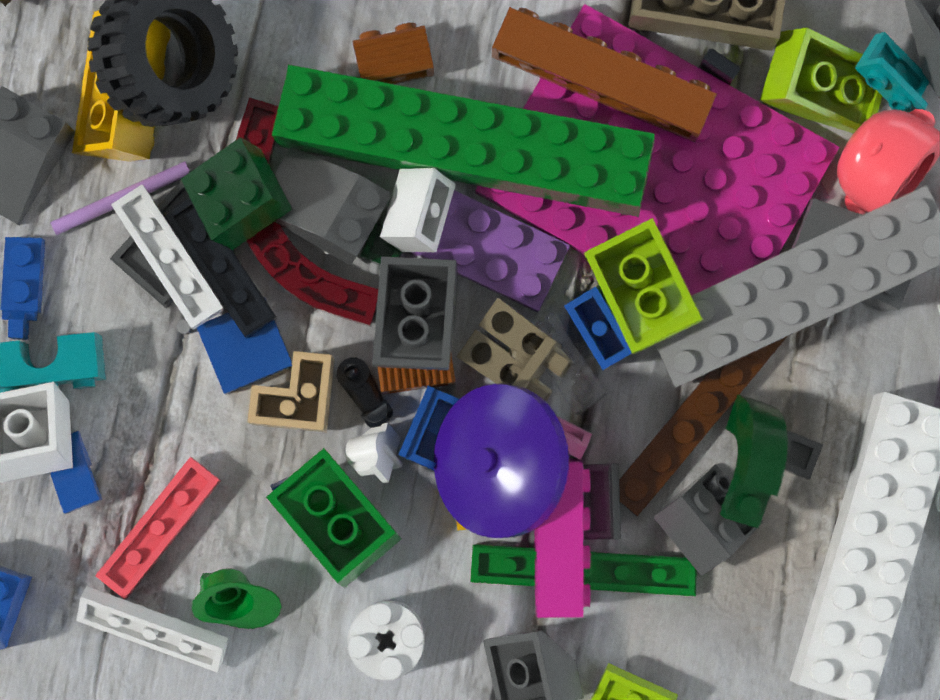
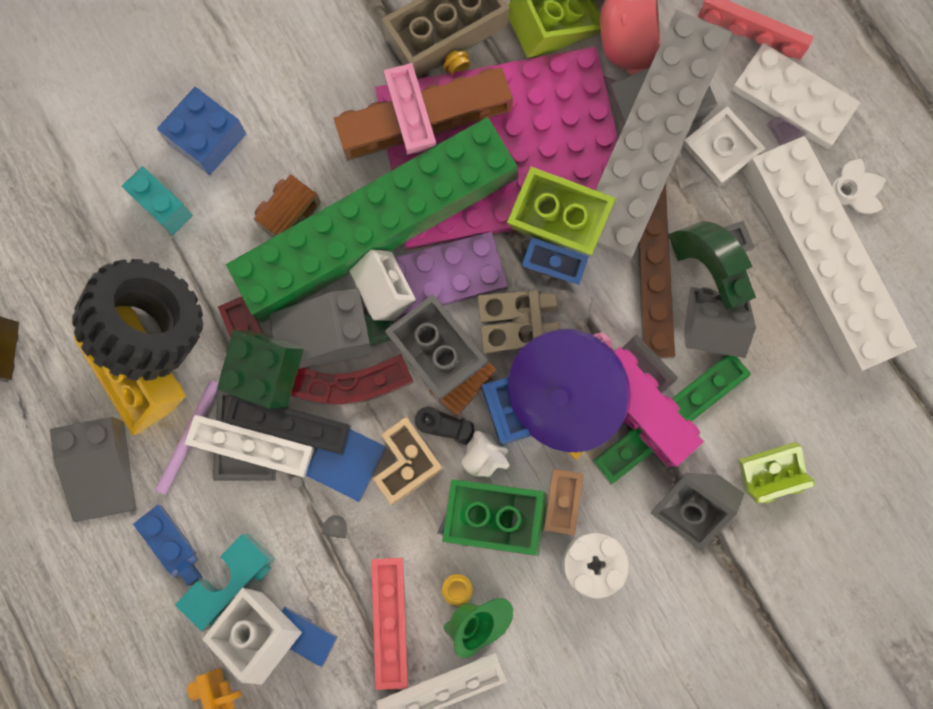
camera: 40 degrees left, 5 degrees down
(183, 398) = (335, 527): none -> dark grey hinge
(244, 552) = (457, 590): none -> yellow plate
(410, 558) = (563, 502): none -> medium nougat plate
(588, 61) = (410, 109): none -> bright pink hinge
(685, 46) = (456, 62): none -> yellow plate
(719, 66) = (487, 56): black tile -> none
(873, 355) = (723, 146): none -> white plate

